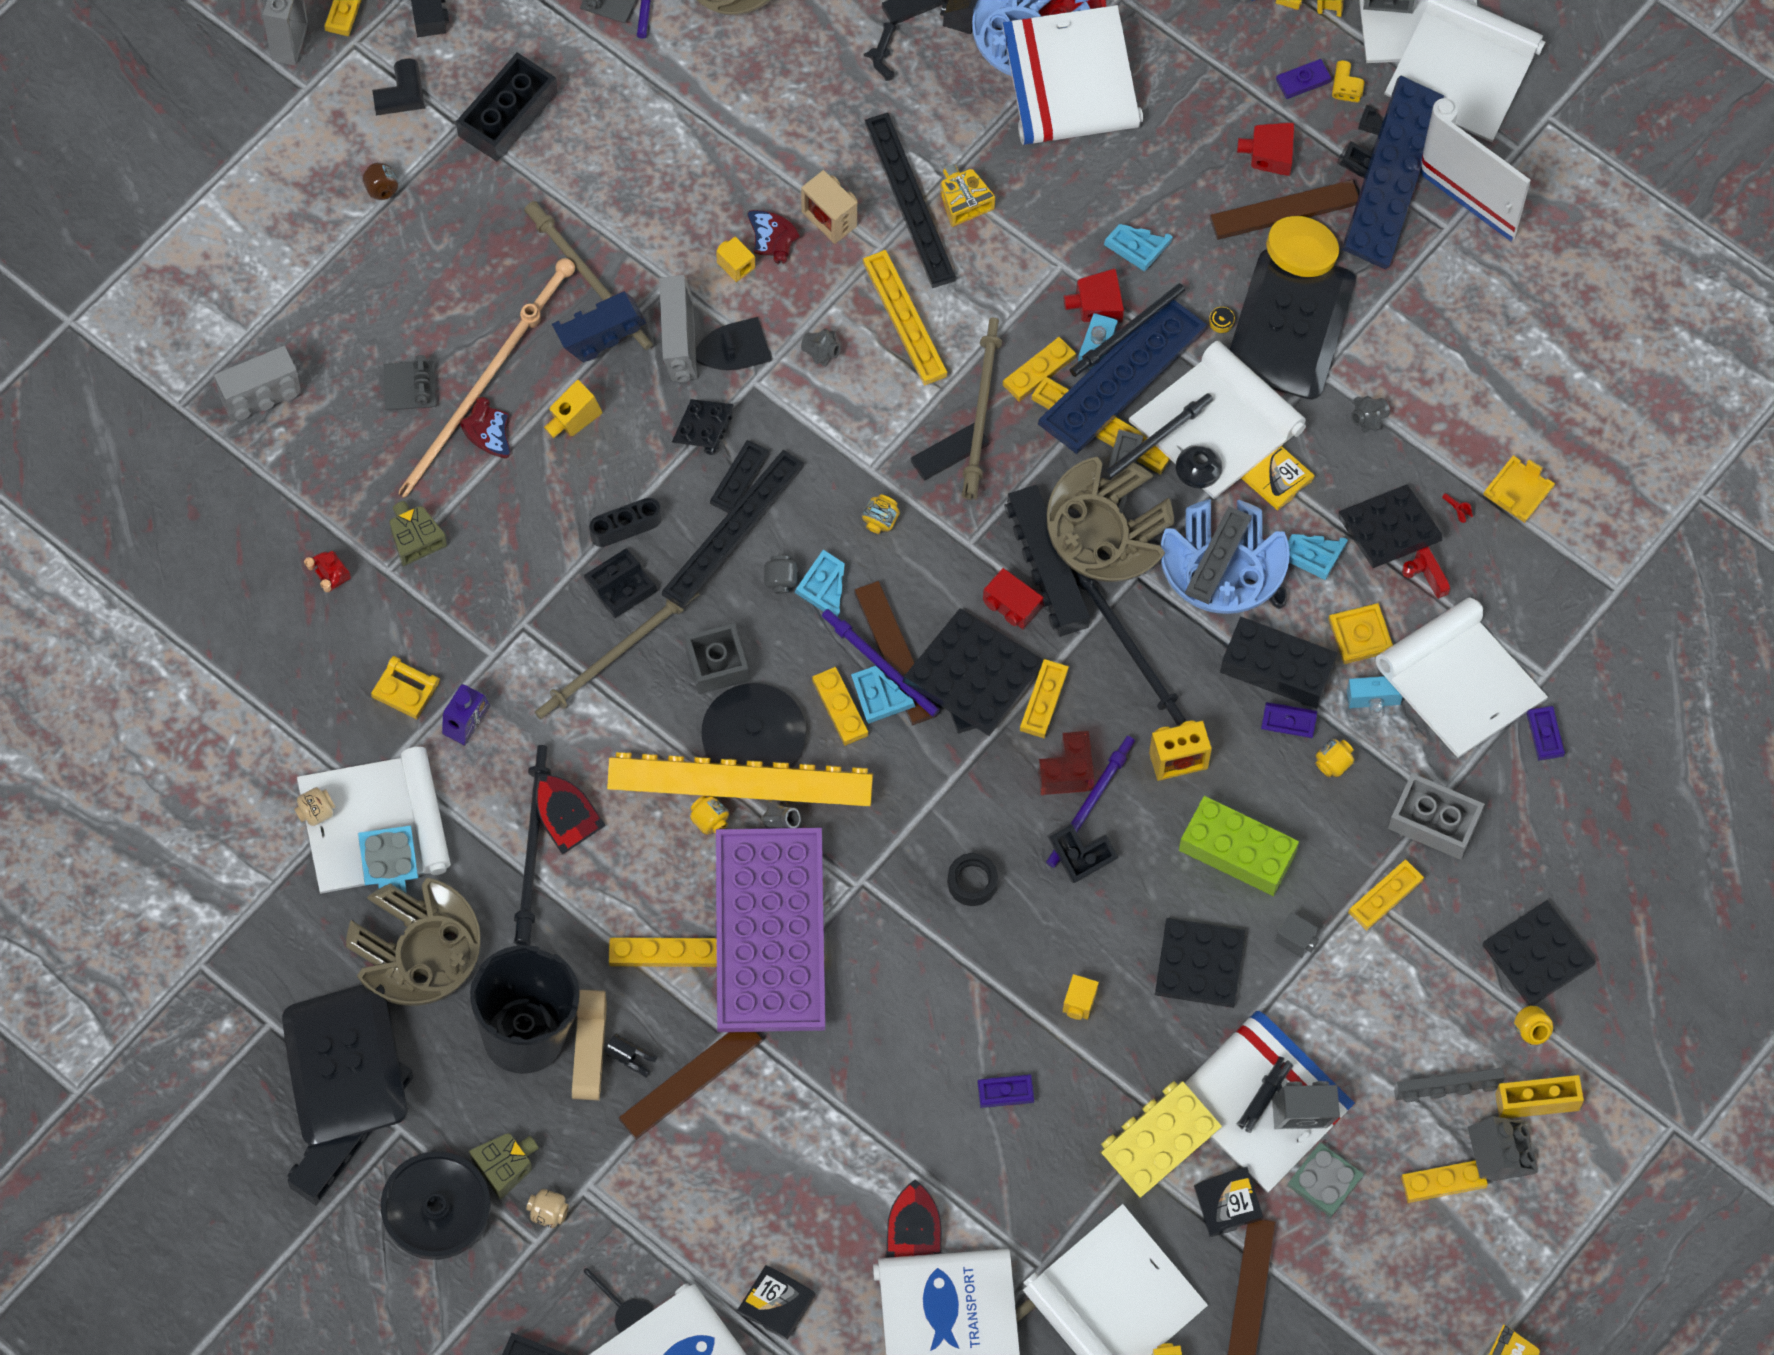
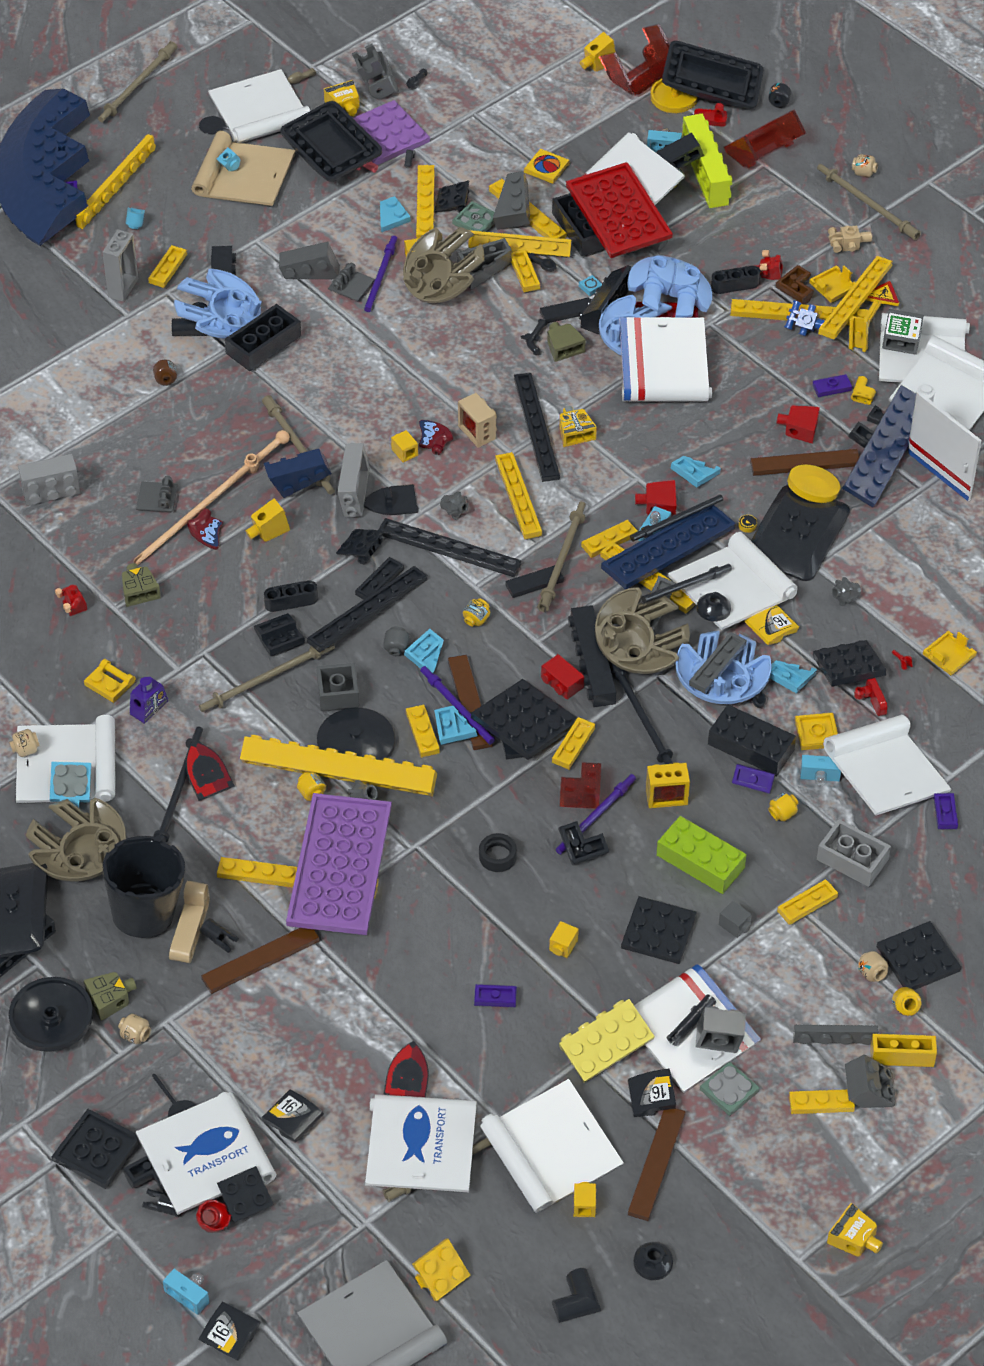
camera: 10 degrees right, 15 degrees down
(441, 65) = (230, 304): none -> light blue piece
(825, 412) = (450, 547): none -> black tile
(925, 55) = (564, 341): none -> olive torso
(1483, 979) = (873, 966): none -> tan head

